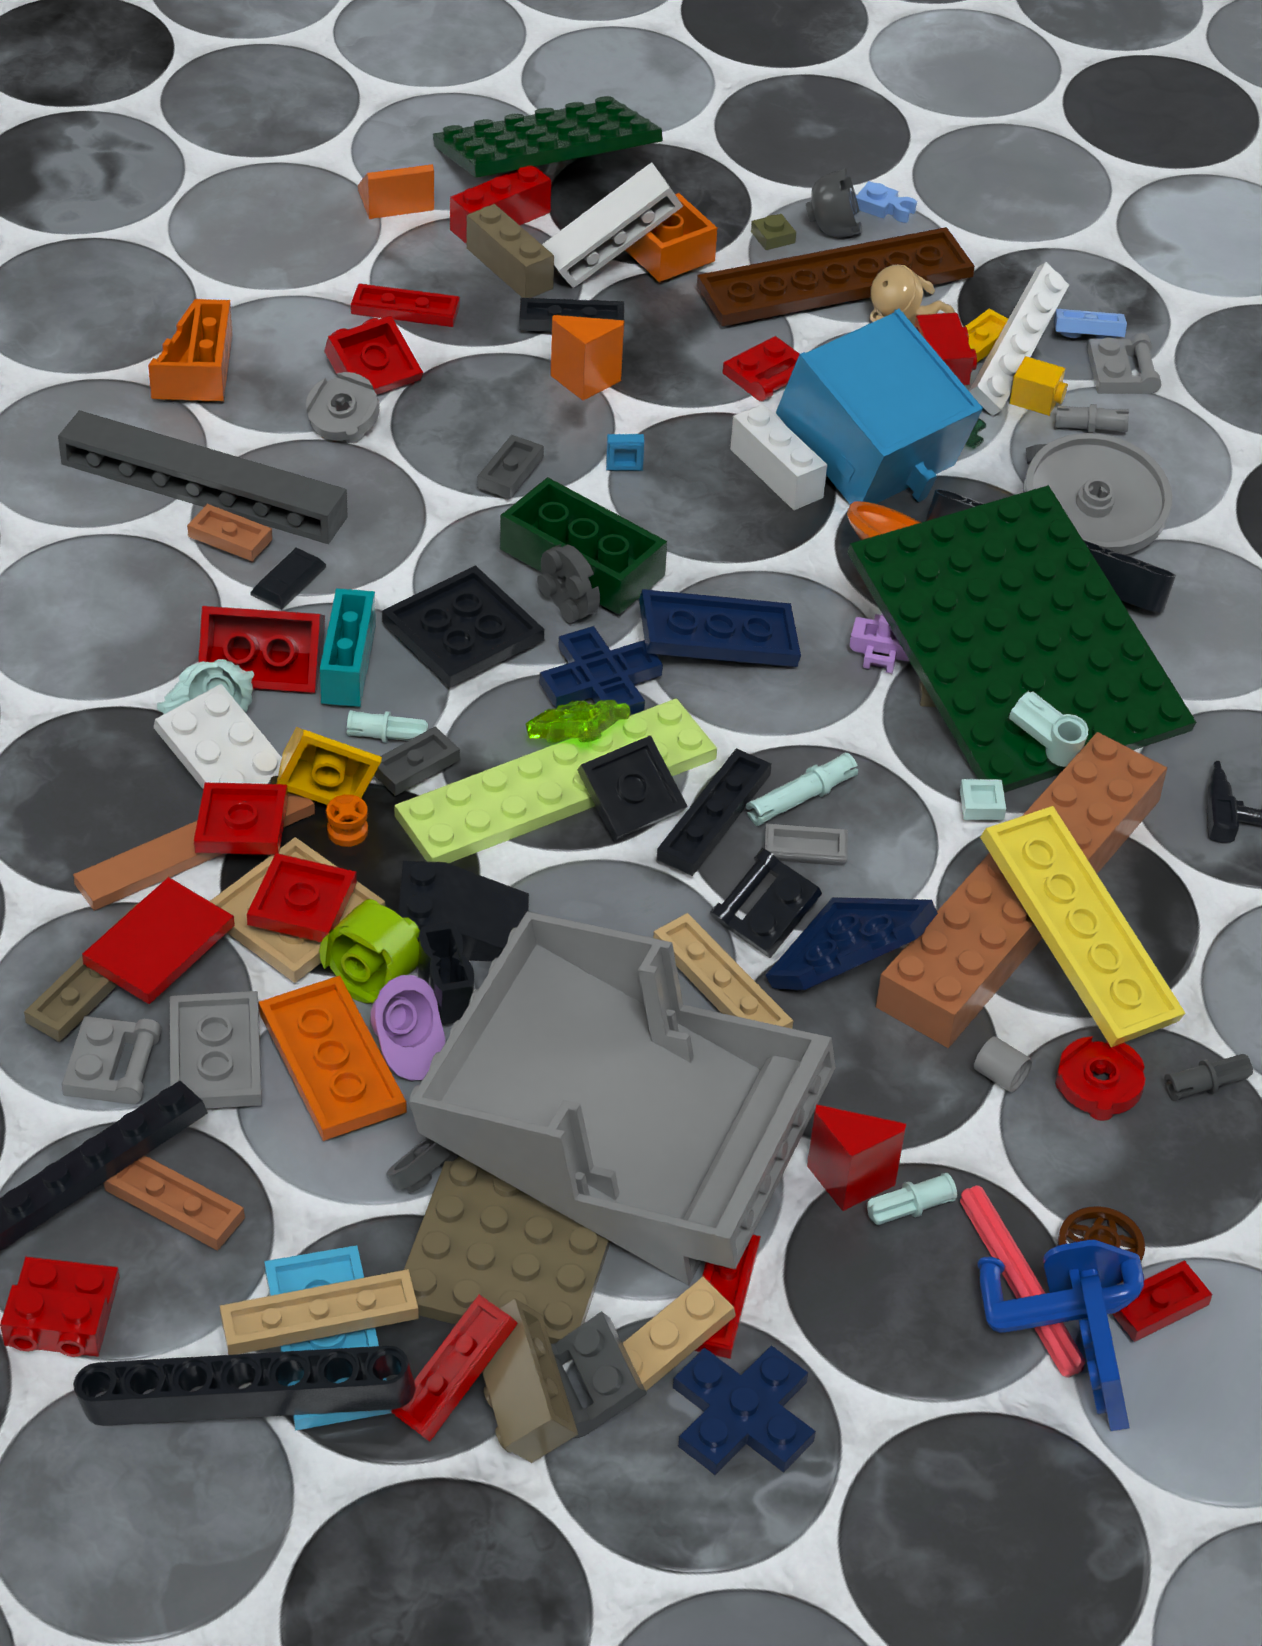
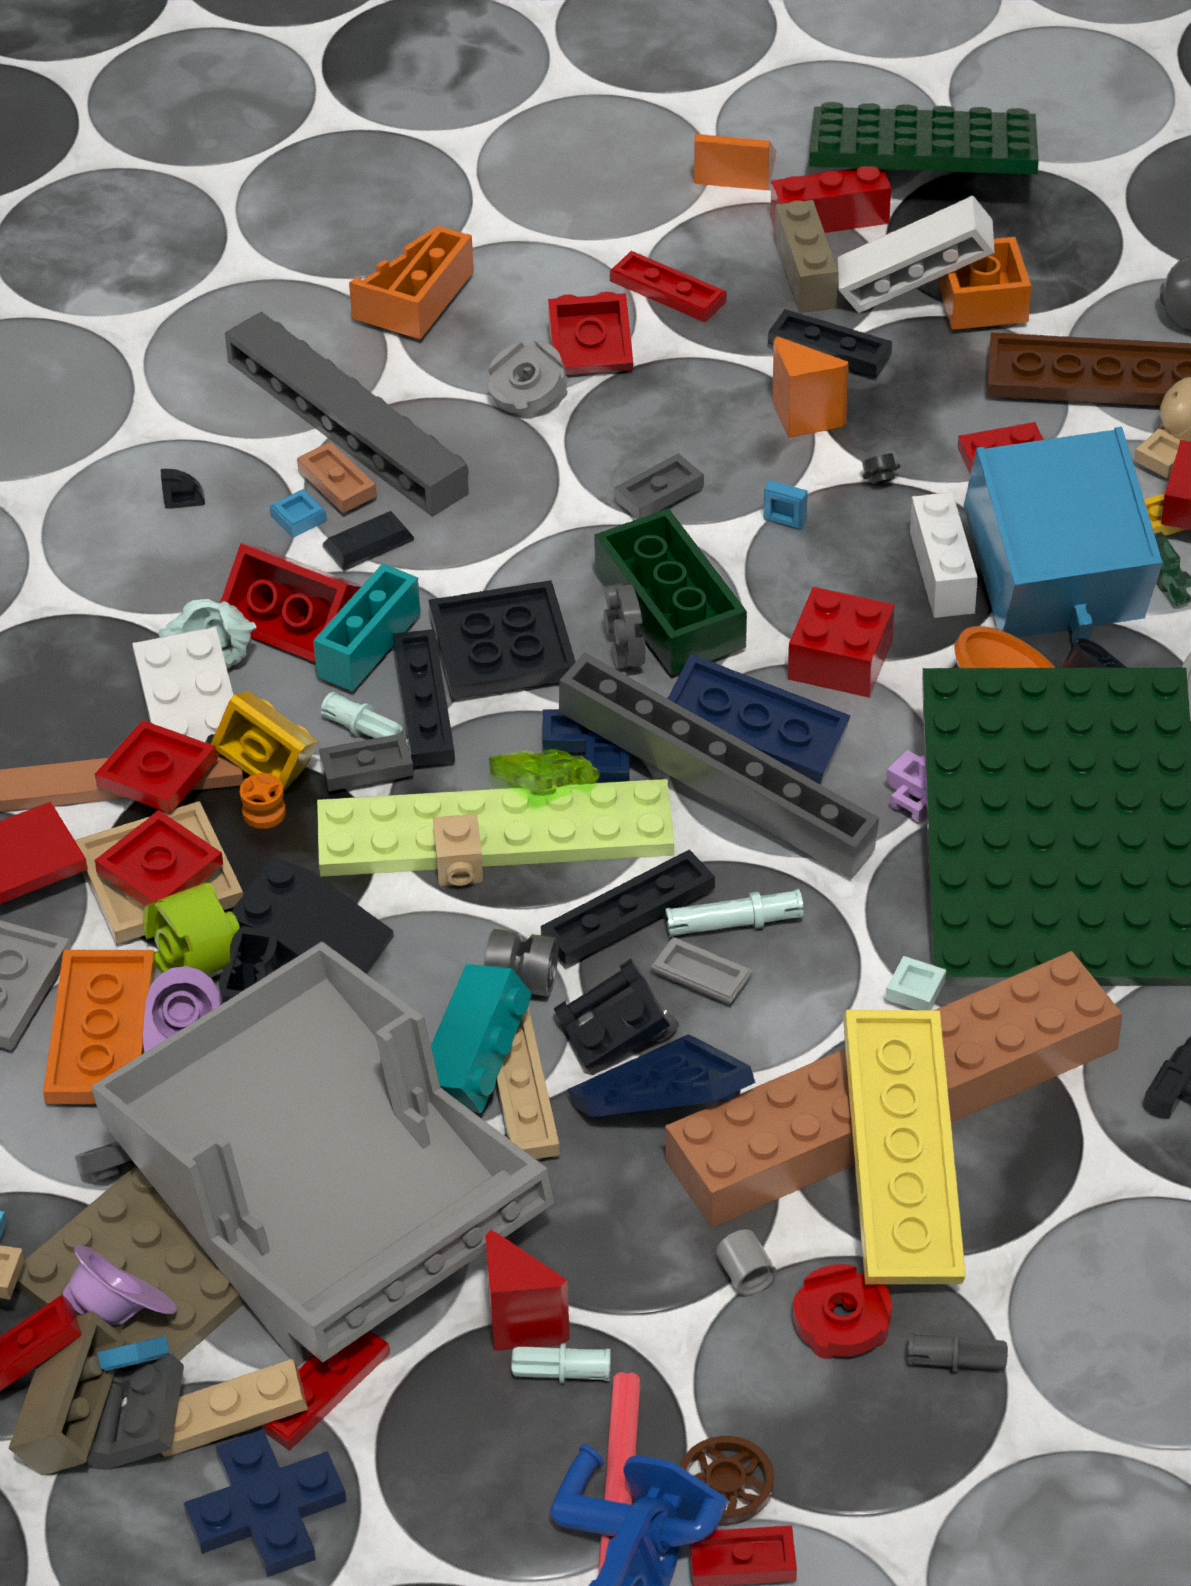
camera: 30 degrees right, 0 degrees up
(96, 580) = (181, 489): none -> black tile
(212, 572) = (298, 513): none -> dark azure tile
(428, 691) = (423, 697): none -> black plate
(510, 1278) = (110, 1290): none -> lavender piece
(547, 806) = (458, 850): none -> tan bracket
(565, 1323) = (133, 1353): none -> dark azure tile
(632, 788) = (553, 856): black plate -> none
(663, 883) = (531, 959): none -> flat silver wheel
(677, 918) = (478, 1032): none -> teal brick
(680, 404) = (880, 468): none -> pearl dark grey plate
(723, 671) = (718, 765): none -> dark grey brick
(745, 547) = (840, 641): none -> red brick
(773, 231) = (1115, 305): olive plate -> none
(1059, 733) = (1020, 927): light aqua piece -> none

